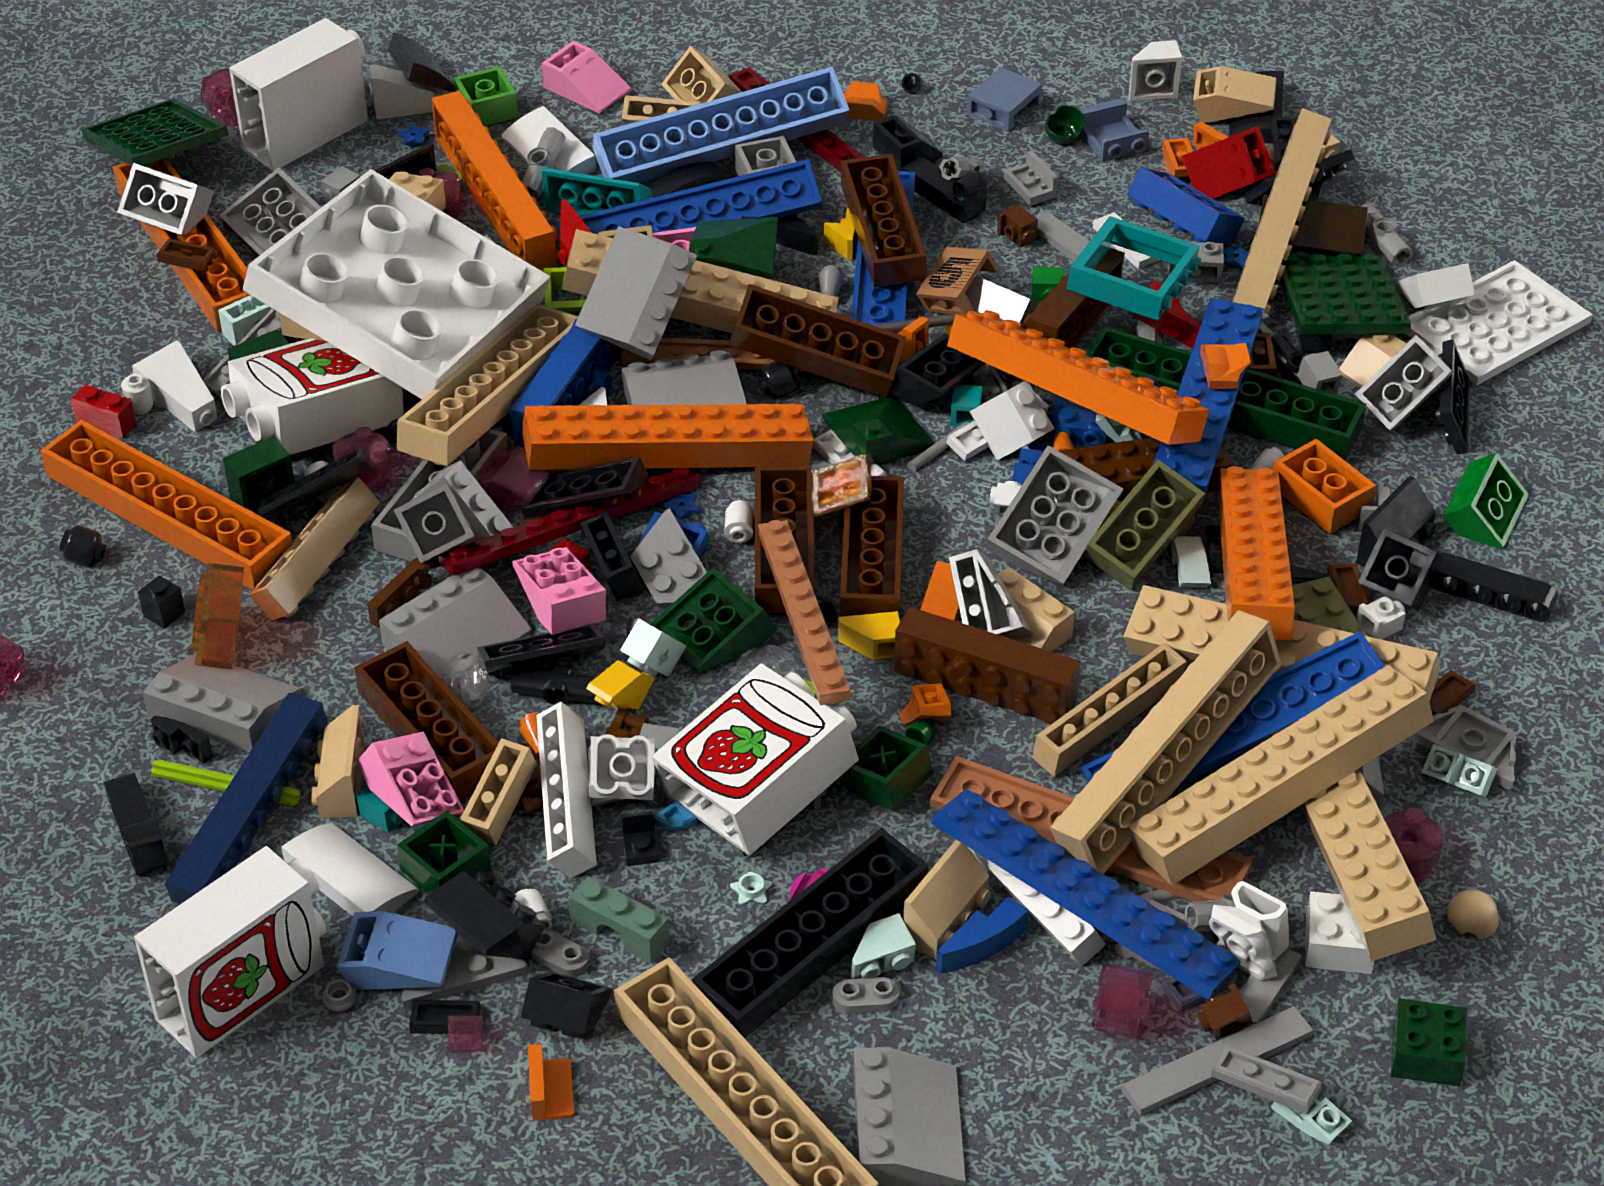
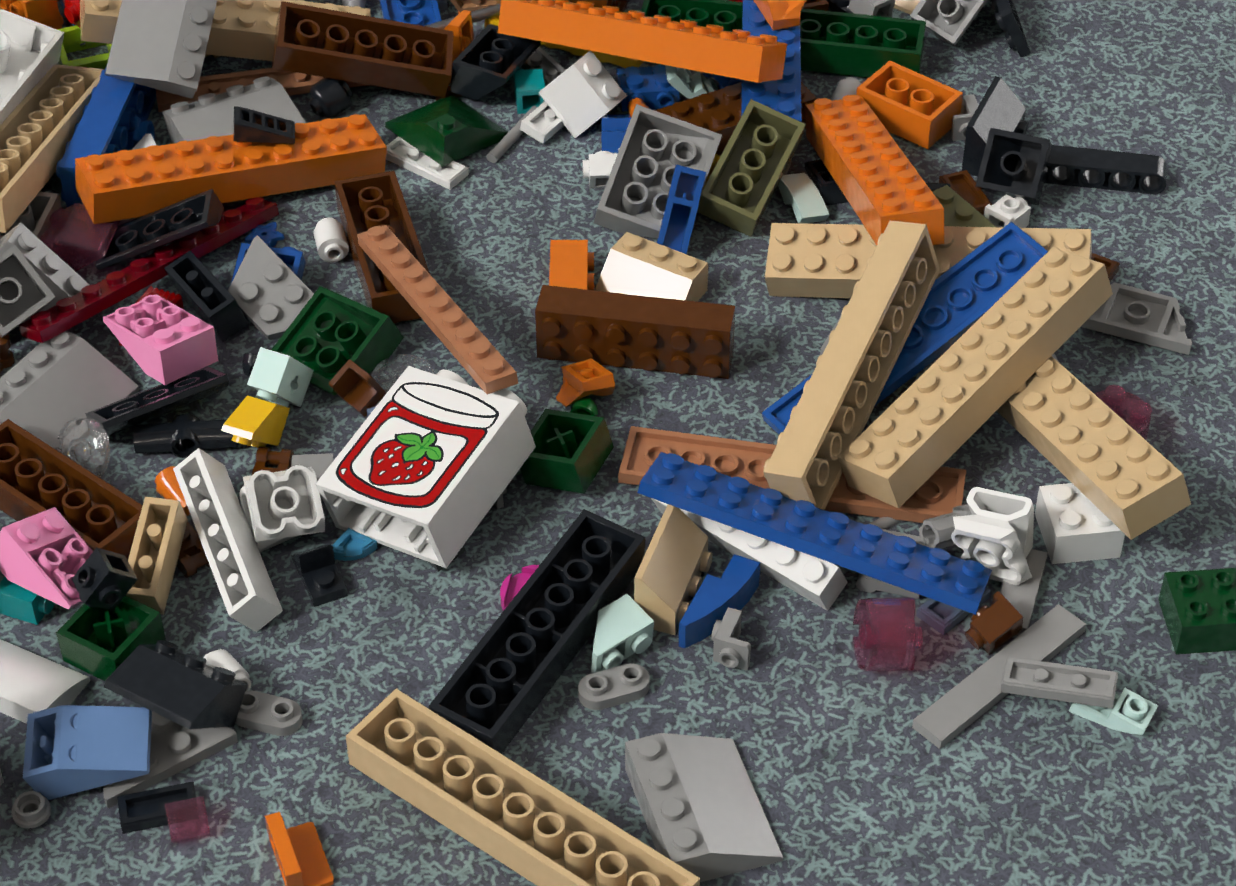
camera: 15 degrees left, 0 degrees up
(446, 806) = (104, 579): none -> black brick
(564, 1003) = (290, 764): black slope -> none
(640, 927) = (351, 665): sand green arch -> none
(696, 403) = (261, 127): none -> black slope
(719, 669) = (357, 387): none -> reddish brown panel
(751, 880) = (456, 594): light aqua plate -> none
(841, 485) = (431, 182): clear orange slope -> none
(870, 634) = (507, 323): yellow slope -> none
(873, 550) = (480, 242): reddish brown brick -> none
(977, 975) = (727, 646): none -> light grey bracket
(984, 597) = (613, 263): light grey wedge -> none
(1065, 554) = (681, 208): none -> blue slope
(1108, 709) = (772, 351): tan brick -> none
(1459, 770) = (1135, 344): light aqua slope -> none
(1473, 913) = (1202, 476): tan hair -> none
(1486, 502) = (1067, 93): green slope -> none

